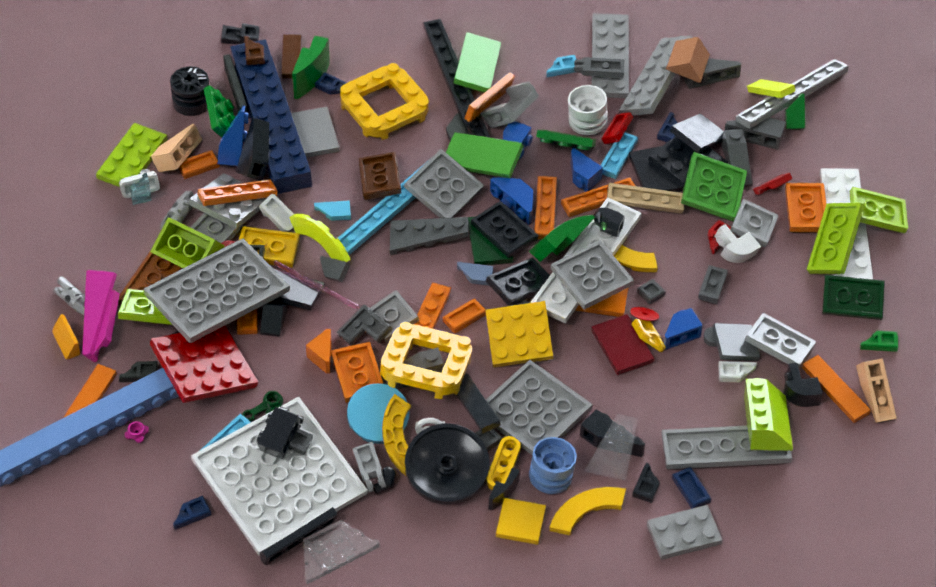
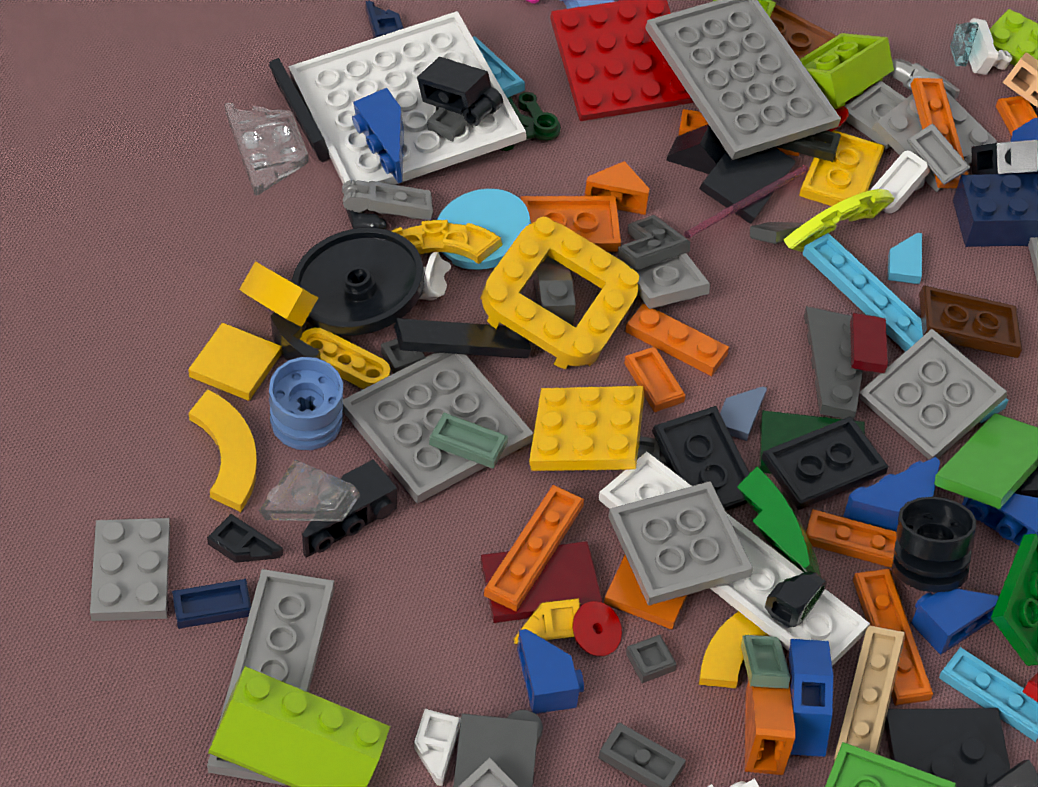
camera: 100 degrees right, 0 degrees up
(263, 188) = (938, 154): none -> light grey tile
(319, 470) = (382, 124): none -> blue slope
(418, 214) = (868, 343): none -> dark red tile
(473, 501) = (278, 294): none -> yellow slope
(548, 386) = (468, 440): none -> sand green tile
(556, 170) = (933, 544): none -> black wheel
(606, 346) = (534, 548): none -> orange tile
(646, 235) = (765, 661): none -> sand green tile
(659, 214) = (811, 695): none -> blue slope
(676, 233) = (768, 729): none -> orange slope

